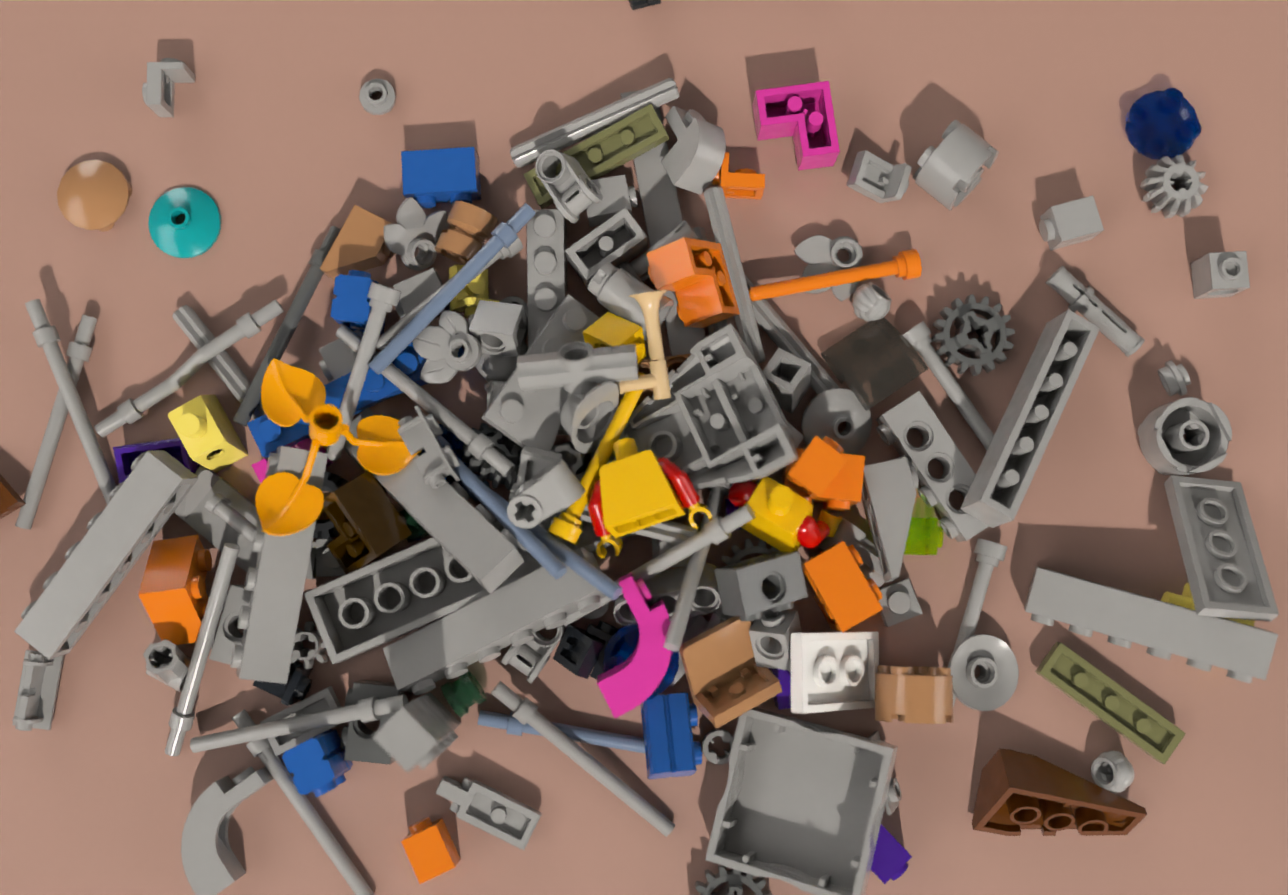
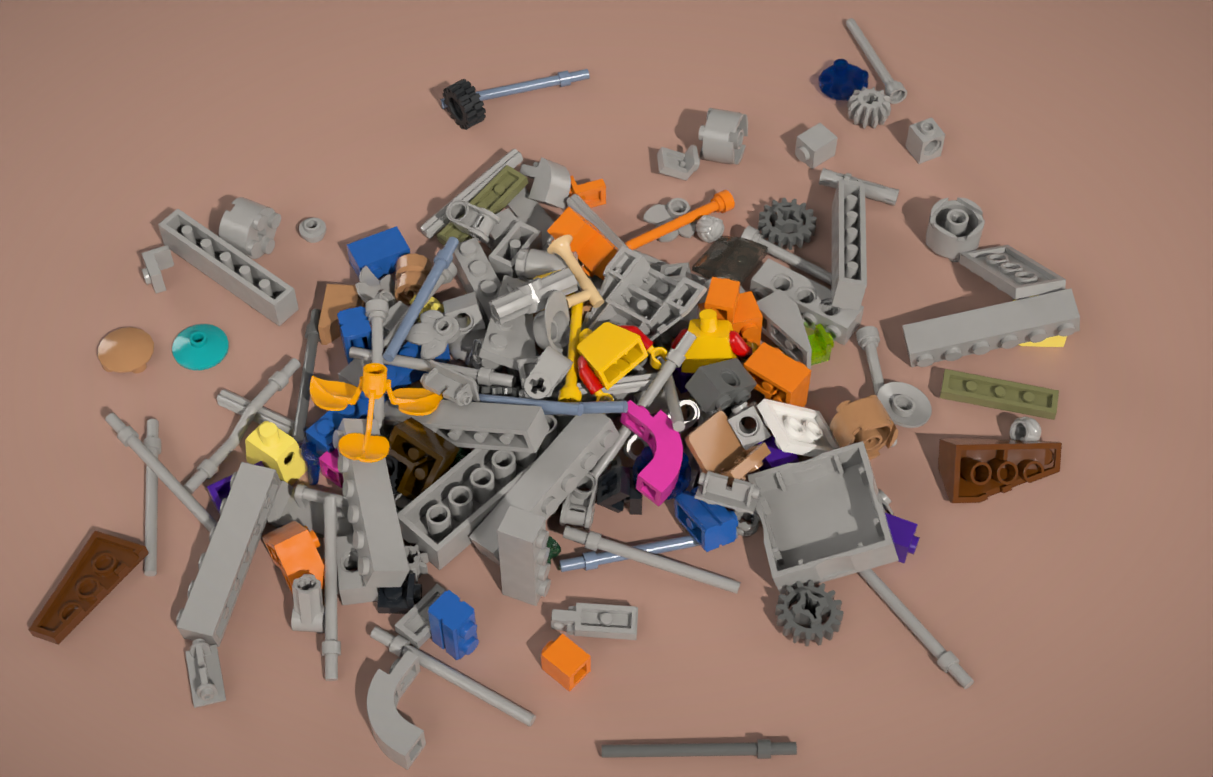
camera: 25 degrees left, 30 degrees down
(238, 465) = (309, 454): none -> clear blue piece
(246, 123) = (229, 267): none -> light grey brick
(291, 75) = (250, 227): none -> light grey brick
(356, 736) = (483, 577): dark grey brick -> none
(366, 711) = (476, 572): light grey bar -> none
(700, 736) = (714, 490): none -> light grey hinge
(803, 113) = (612, 143): dark pink brick -> none
(898, 603) = (824, 391): light grey plate -> none
(1174, 378) = (927, 201): light grey plate -> none
(1223, 168) = (893, 89): none -> light grey piece

